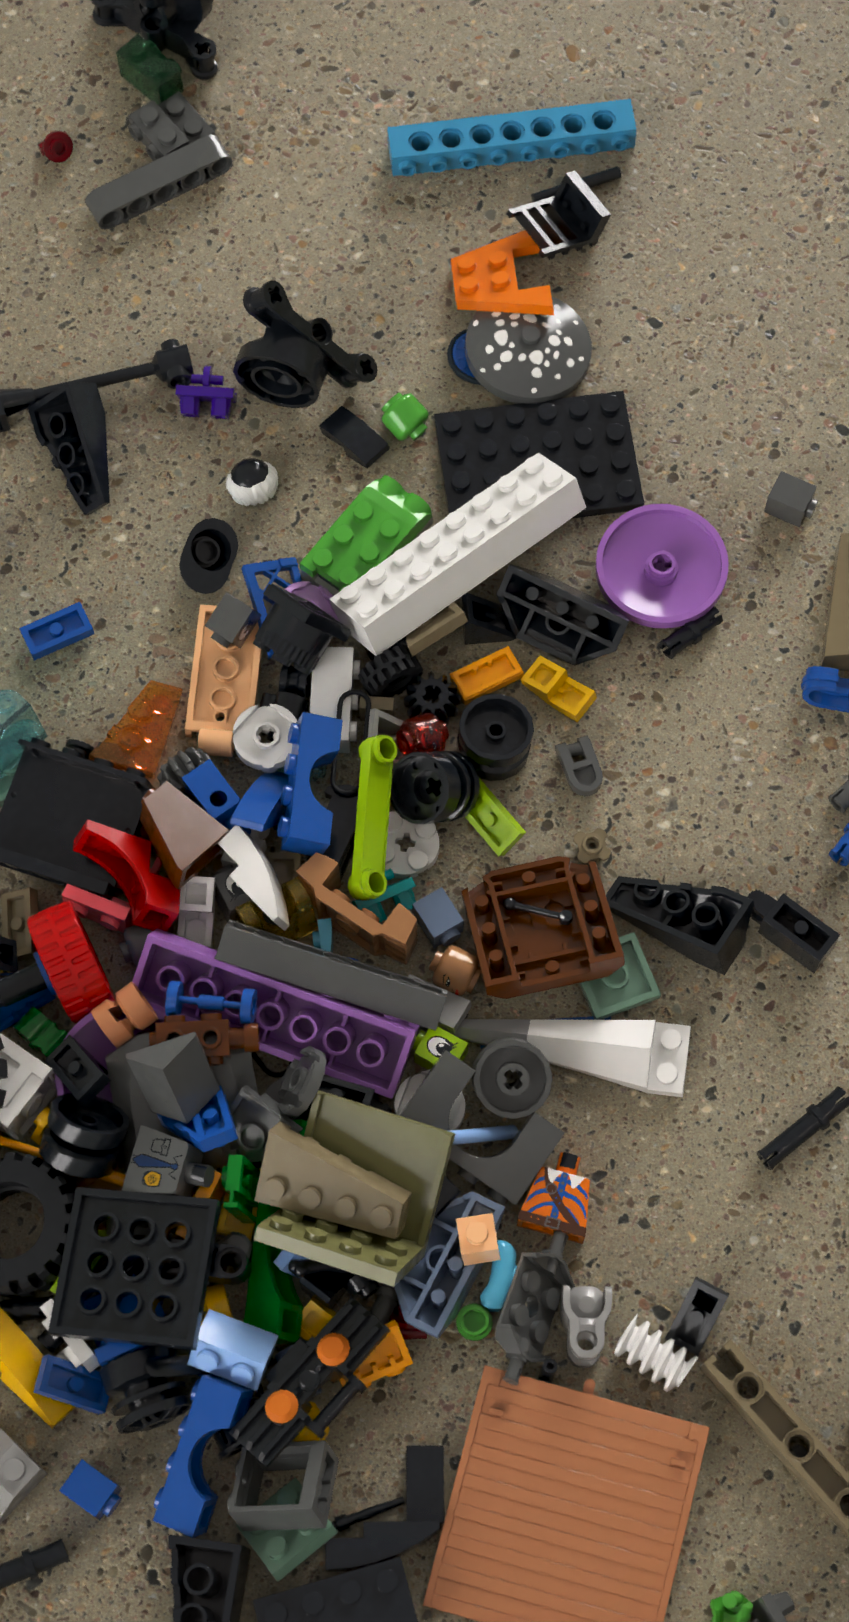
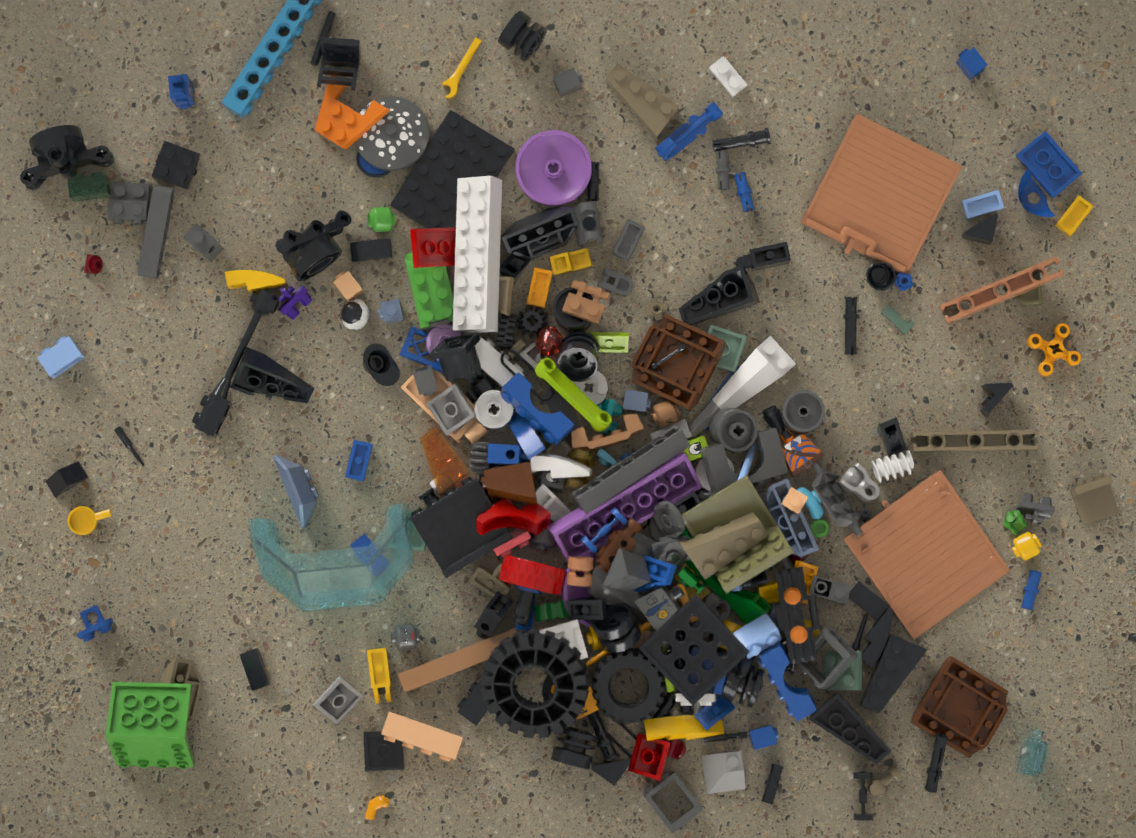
camera: 50 degrees left, 15 degrees up
(50, 1435) = (740, 735): none -> black piece
(190, 227) = (203, 242): none -> dark grey torso
(191, 329) = (253, 280): none -> yellow slope
(220, 685) = (451, 409): none -> light grey slope
(265, 144) = (176, 165): none -> black plate
(281, 443) = (347, 285): none -> light nougat brick
(293, 518) = (391, 311): none -> sand blue brick
(361, 74) = (181, 91): none -> blue hinge
(392, 1409) = (830, 590): none -> dark grey slope
(417, 485) = (433, 247): none -> red tile
(506, 739) = (584, 308): none -> medium nougat plate
(577, 1125) = (773, 418): none -> black cone
(626, 1135) = (812, 407): none -> dark grey wheel
(631, 663) = (589, 223): none -> dark grey piece
(652, 736) = (628, 240): none -> dark grey plate
(666, 369) = (453, 81): none -> yellow piece
(798, 394) = (524, 37): none -> black wheel

